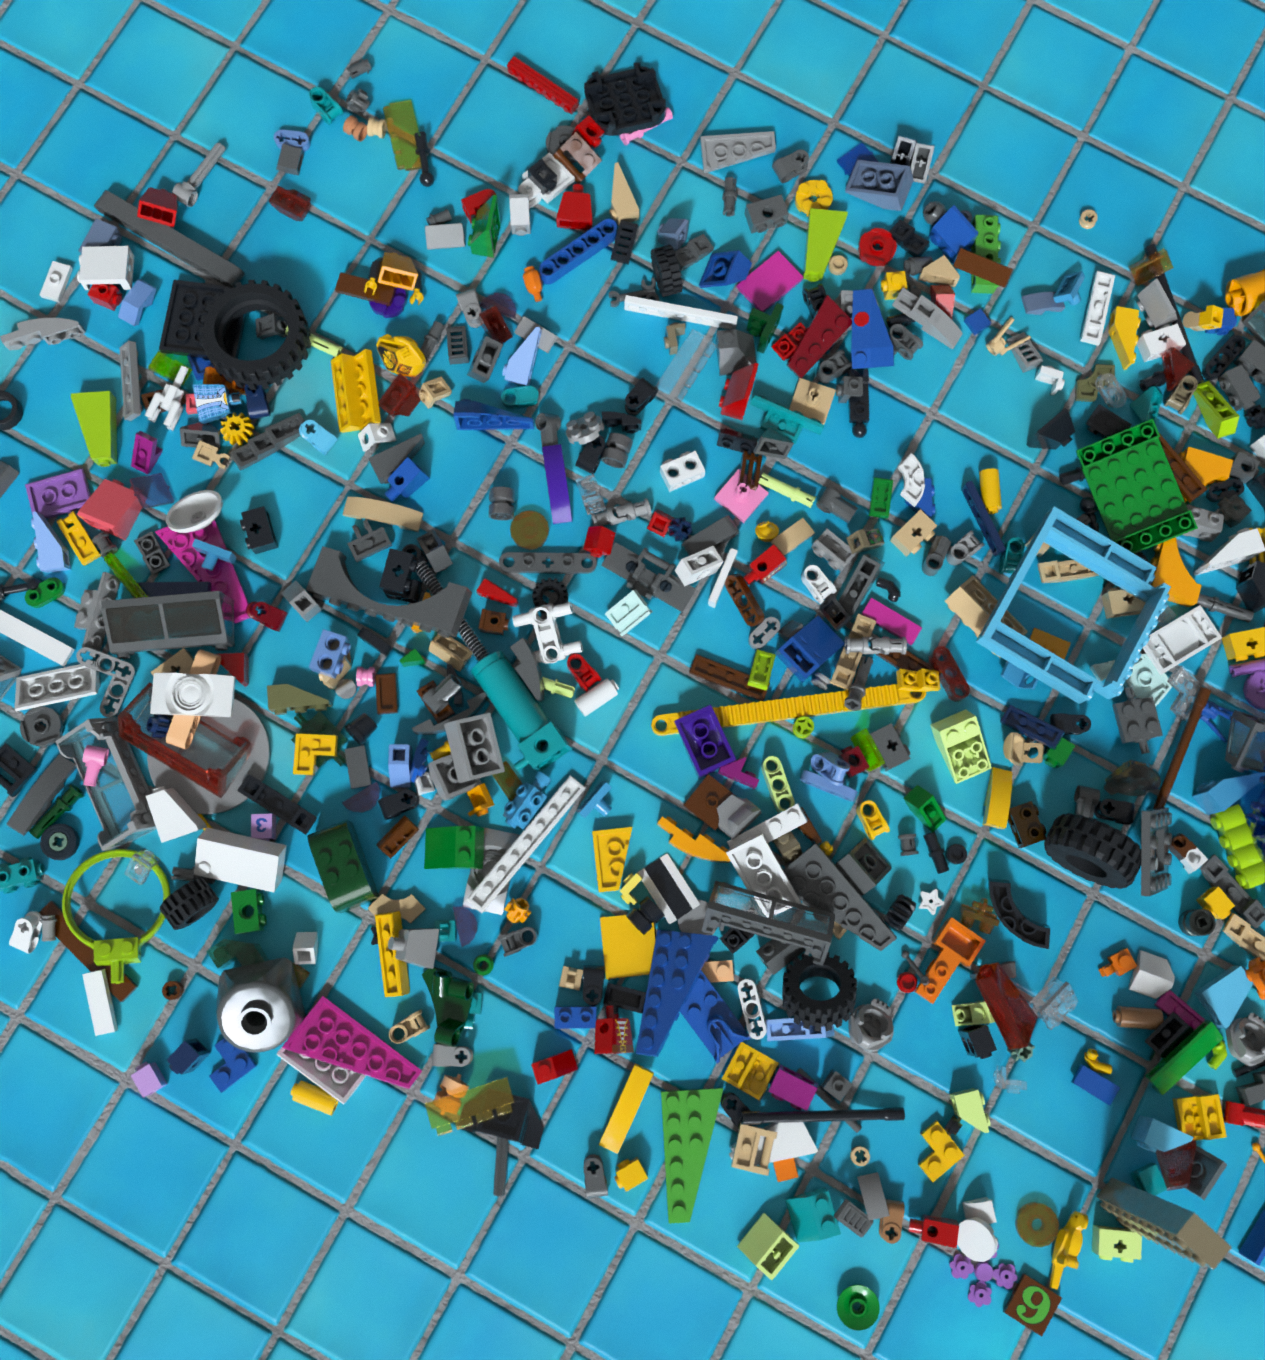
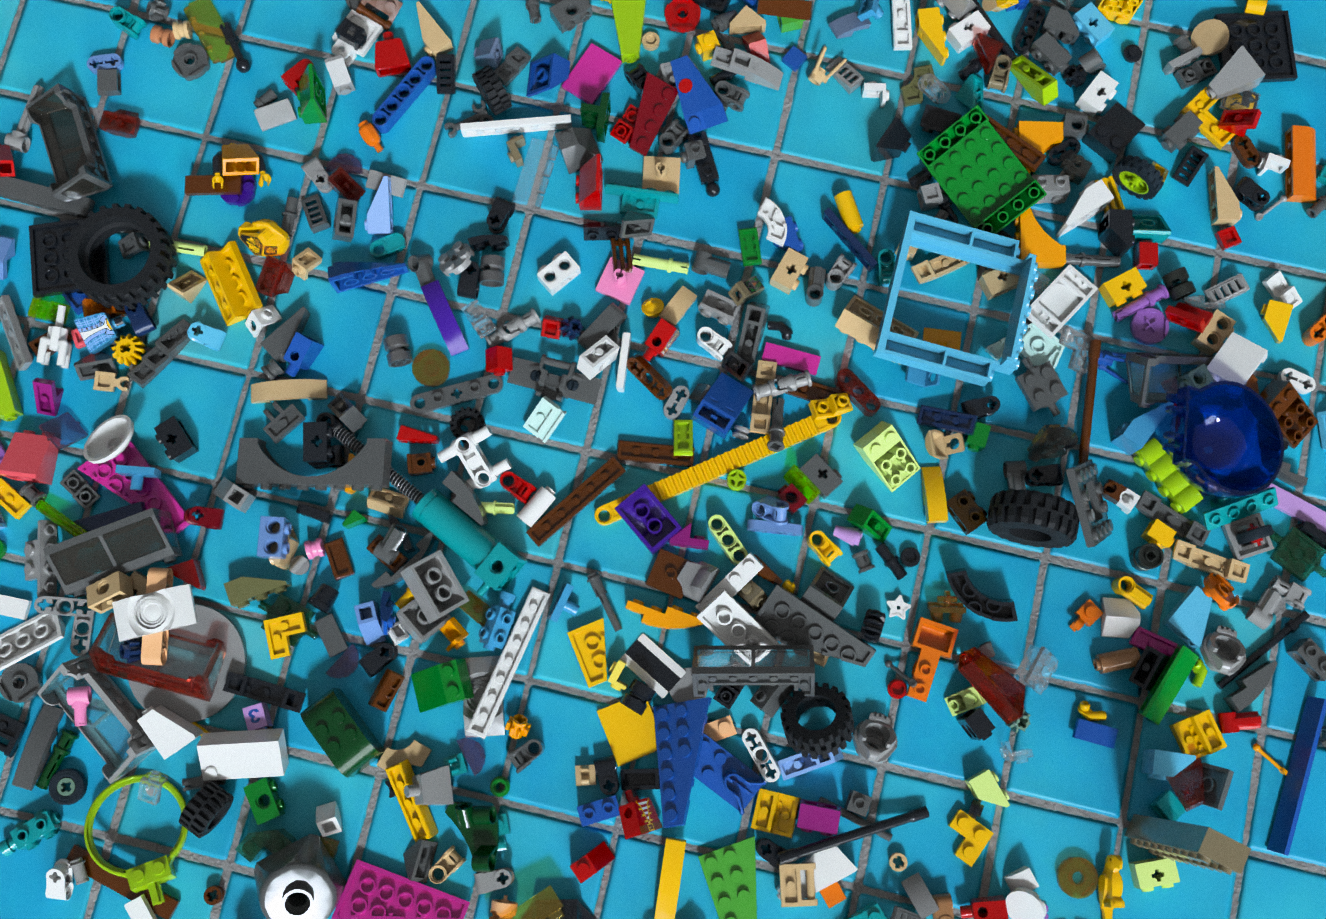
camera: 10 degrees left, 0 degrees up
(153, 660) = (108, 590): none -> tan brick
(236, 210) = (70, 144): none -> windscreen
(312, 381) = (187, 285): none -> tan slope
(372, 488) = (272, 369): none -> dark grey wheel
(381, 169) = (197, 68): none -> dark grey plate
(383, 1014) = (419, 860): none -> dark grey slope
(636, 703) = (576, 501): none -> reddish brown plate
(636, 800) = (600, 592): none -> dark grey pin
(901, 814) = (848, 534): none -> lavender cone
(1076, 497) = (929, 196): none -> light grey brick
(1173, 953) = (1133, 592): none -> yellow piece

